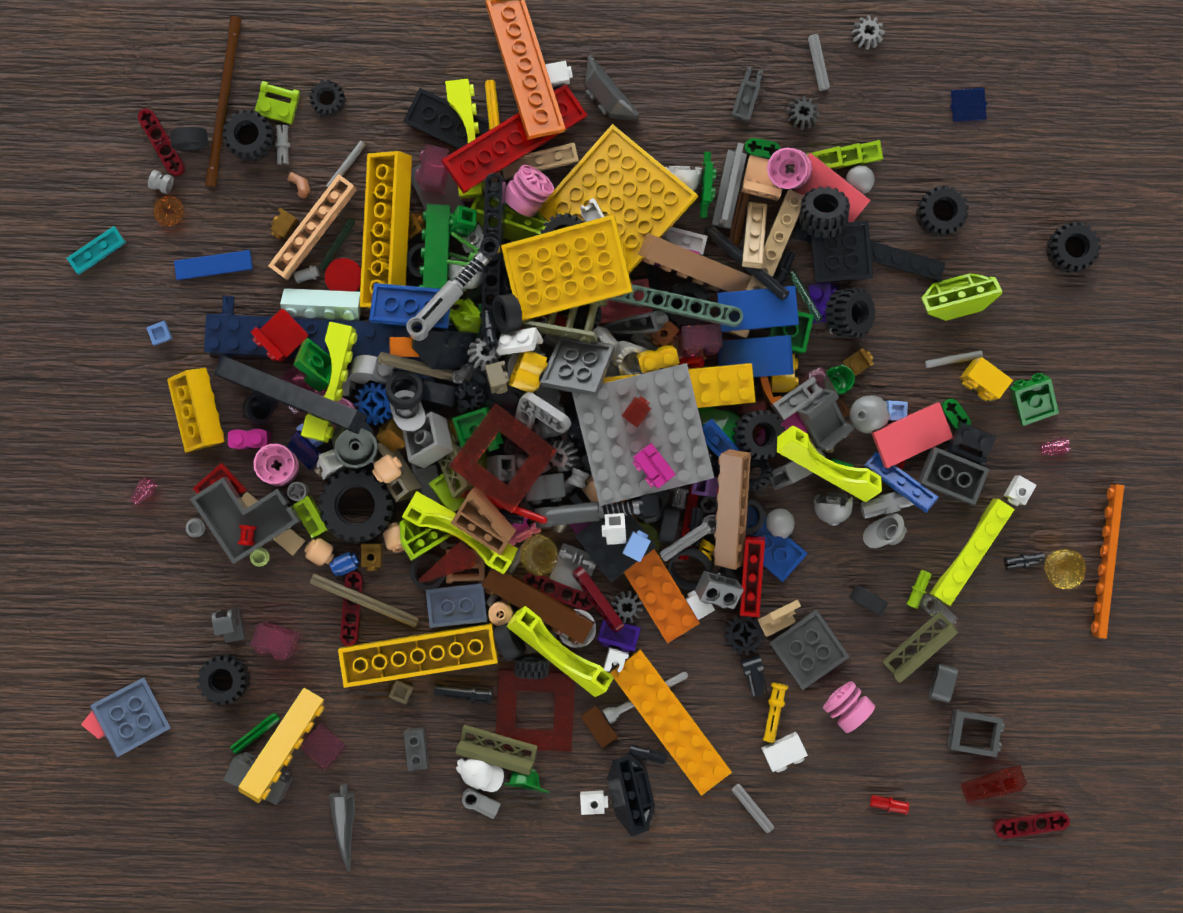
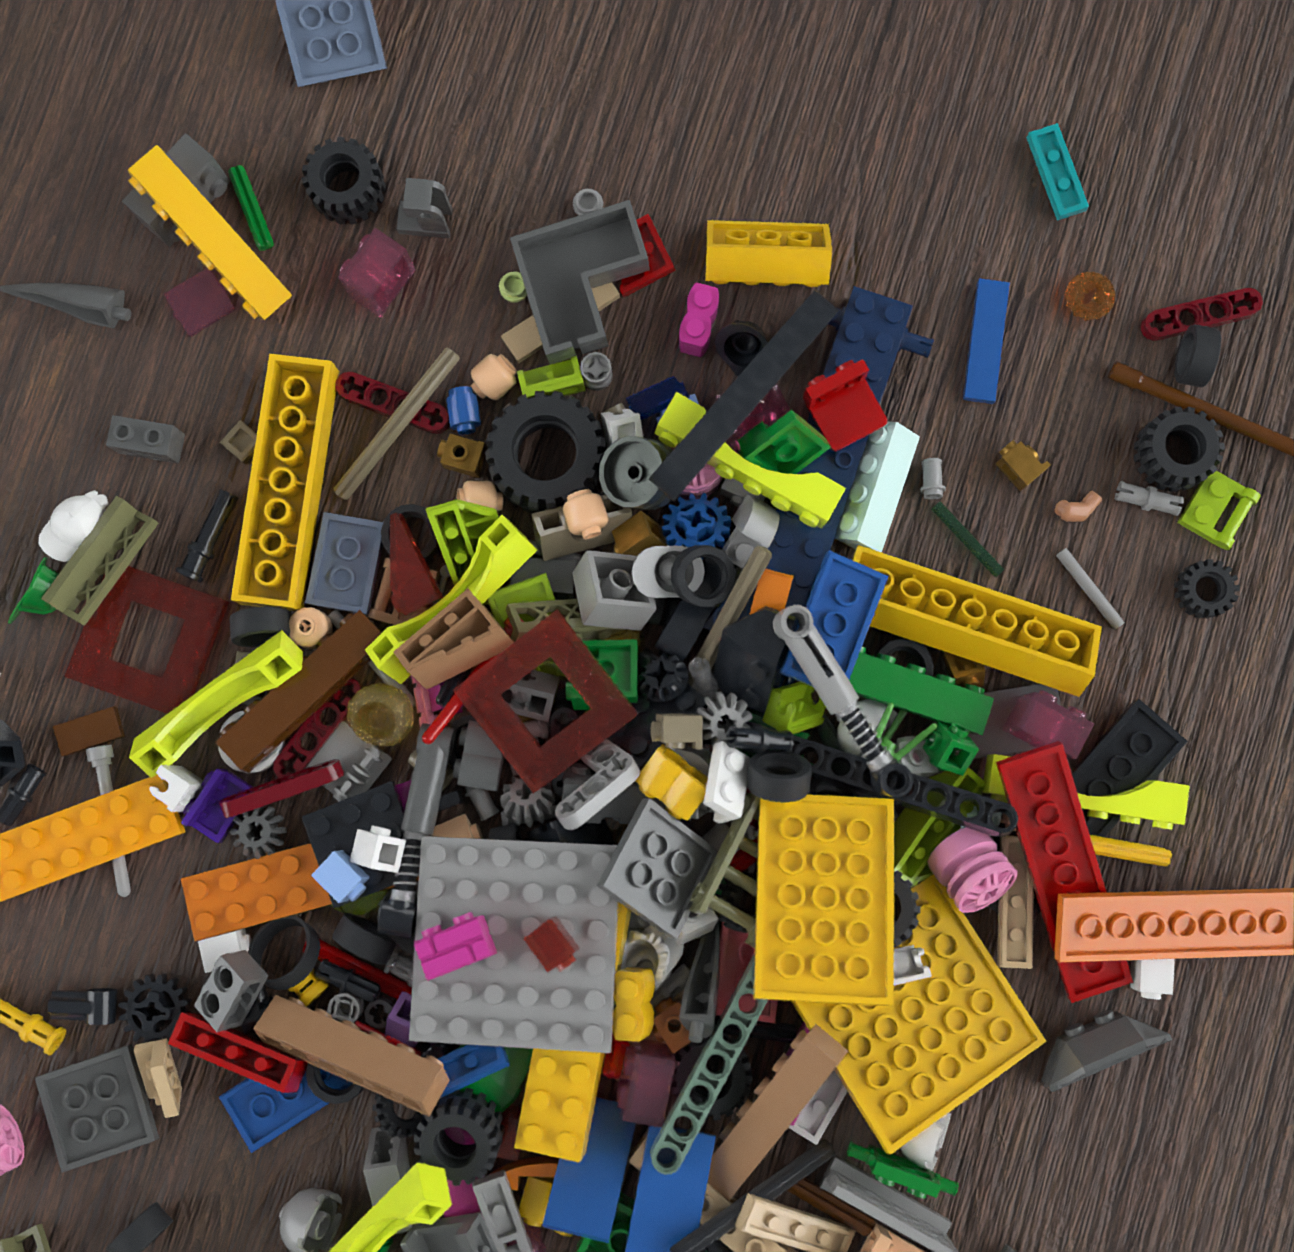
camera: 115 degrees right, 5 degrees down
(143, 490) = (667, 142): clear pink cone -> none
(159, 181) = (1141, 292): light grey wheel -> none
(159, 333) = (902, 230): medium blue plate -> none
(249, 541) = (549, 273): red bush -> none
(267, 459) = (648, 330): bright pink wheel -> none
(313, 227) = (1005, 508): light nougat brick -> none
(343, 275) = (914, 534): red tile -> none
(482, 803) = (29, 514): light grey piece -> none
(531, 667) = (209, 651): black tyre -> none
(578, 478) = (482, 814): light grey wheel -> none
(685, 541) = (327, 959): light grey axle -> none
(780, 523) = (312, 1123): light grey hair -> none

